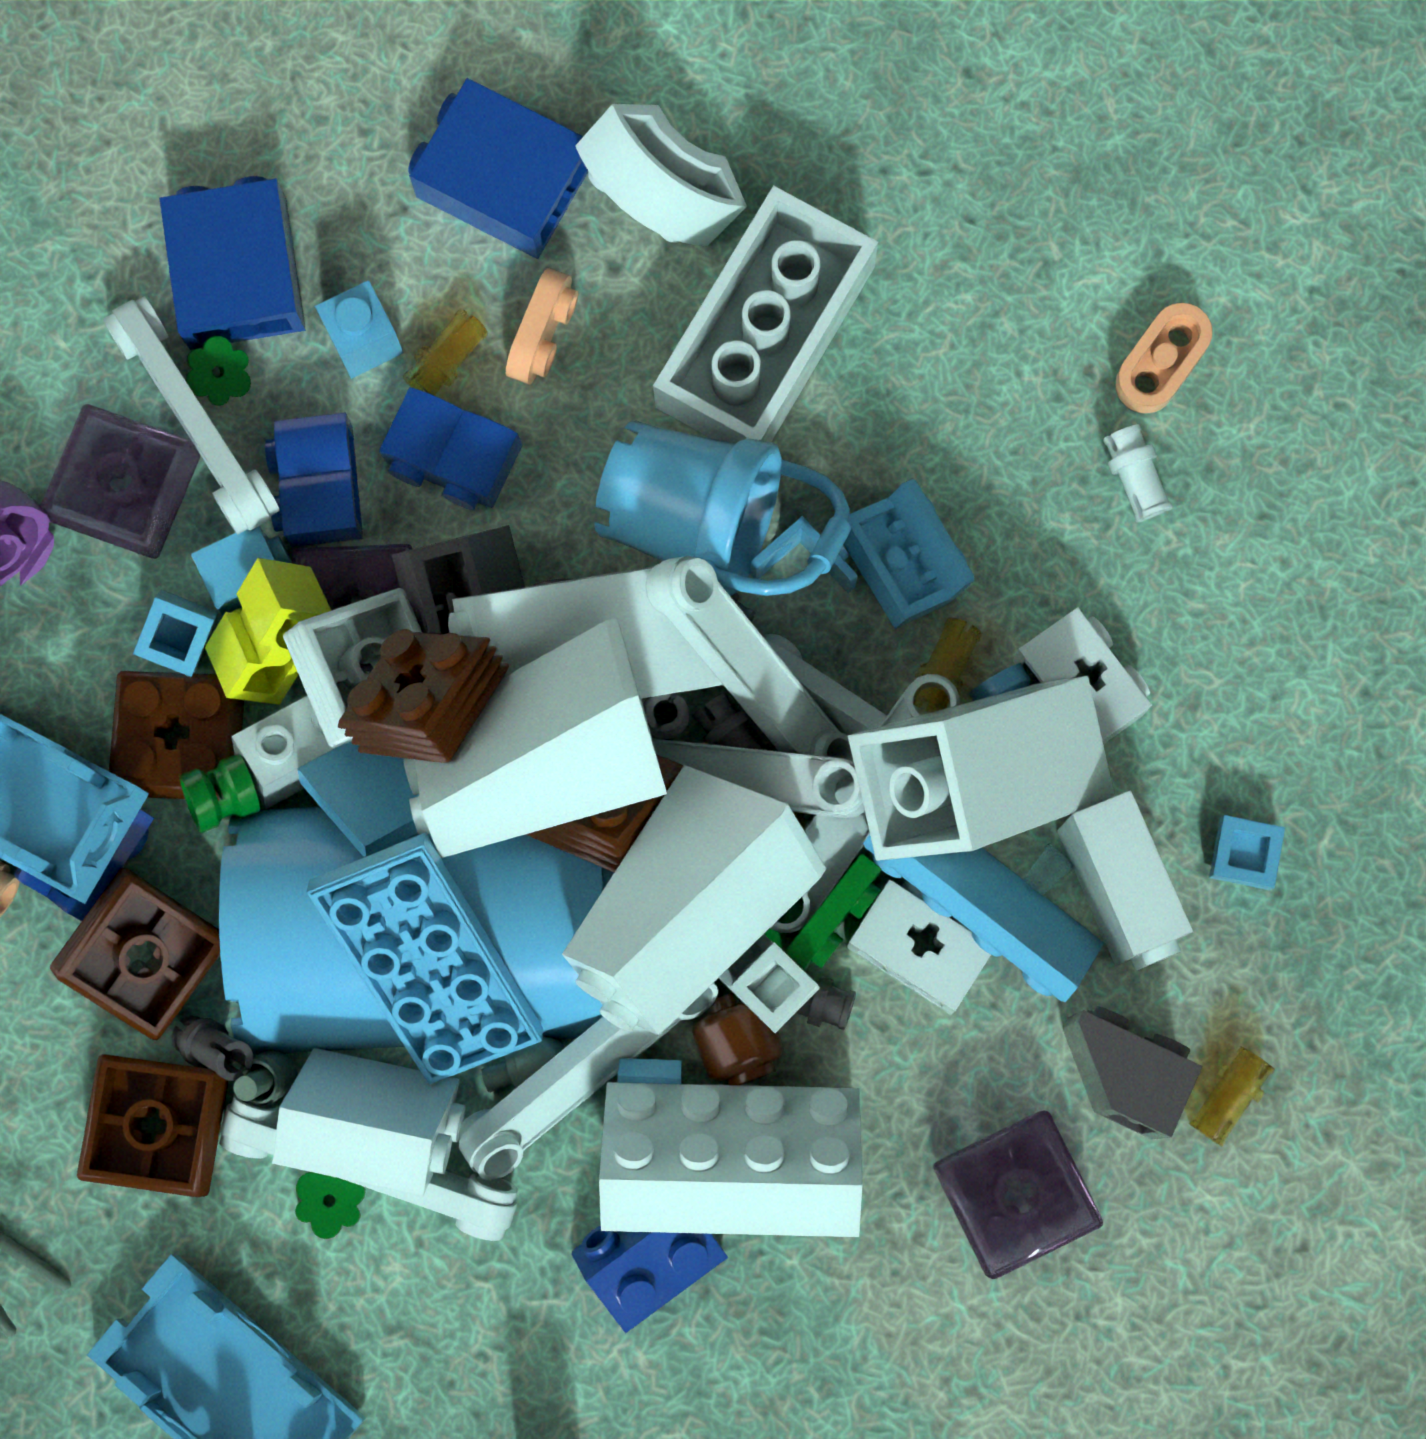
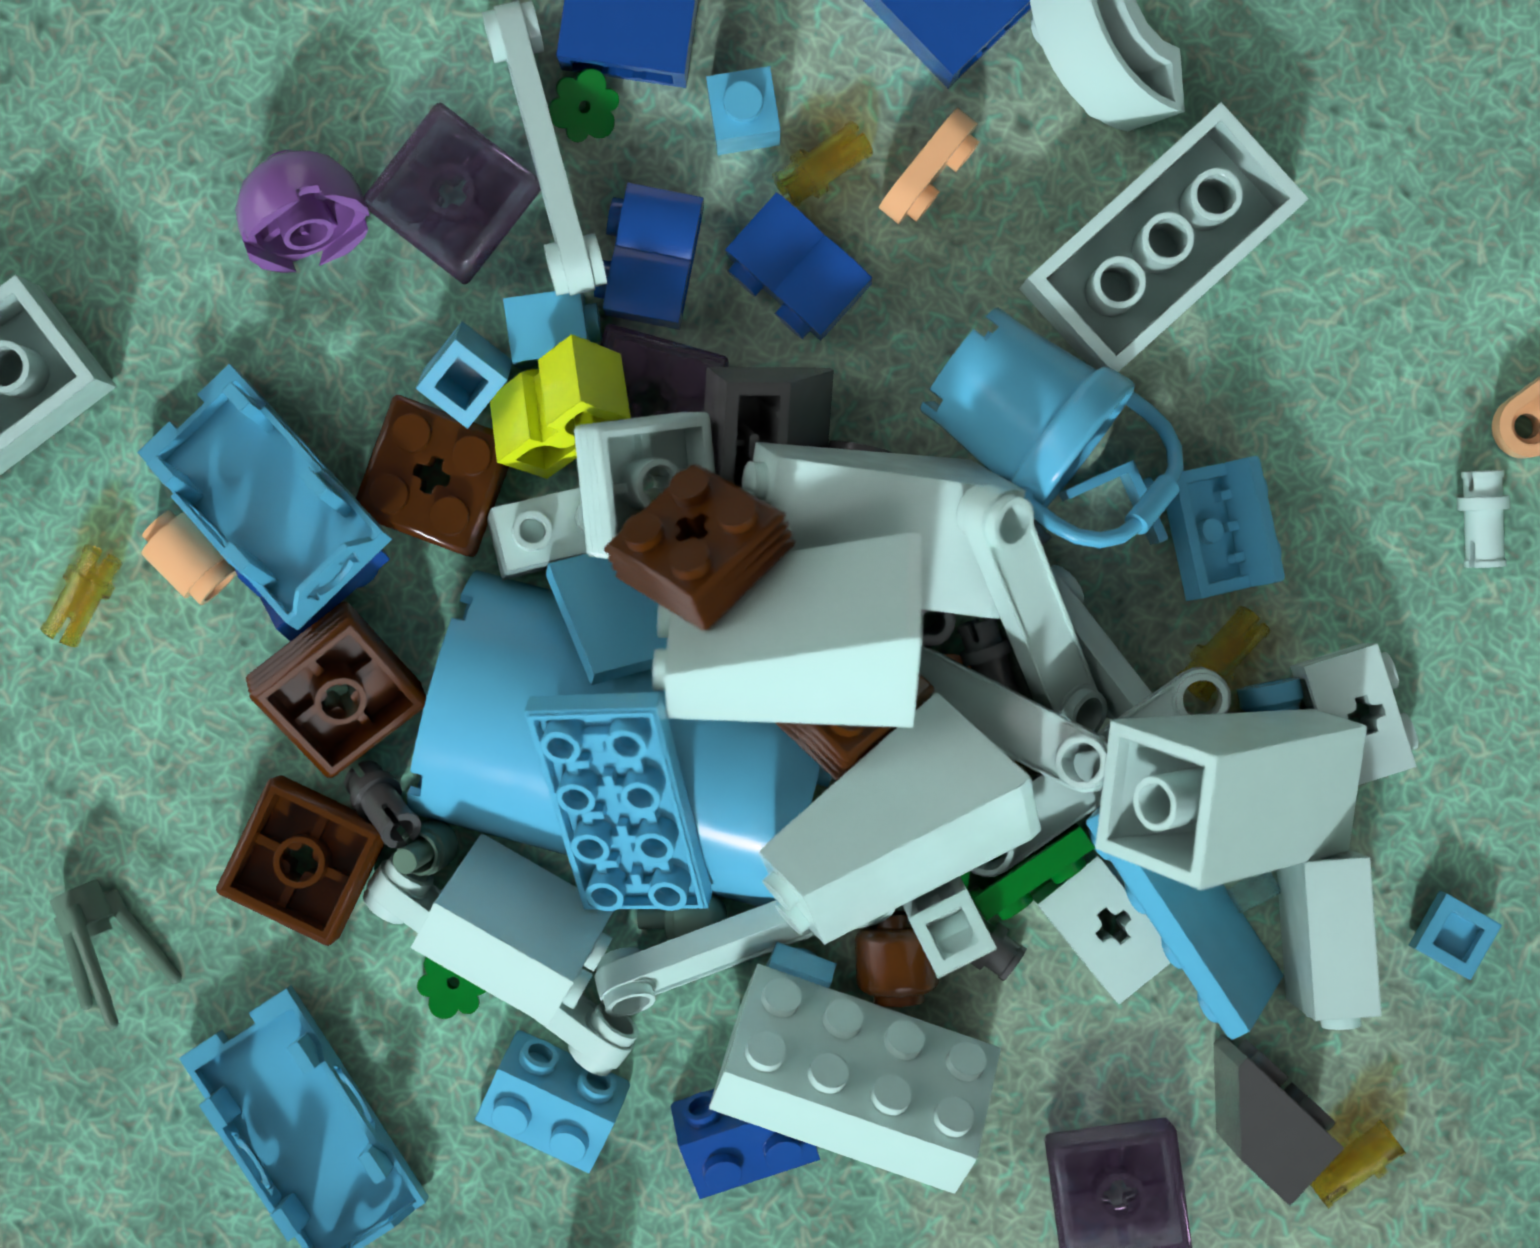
camera: 10 degrees right, 10 degrees up
(233, 787) = (477, 559): green wheel -> none
(456, 1284) = (552, 1101): none -> medium azure bracket

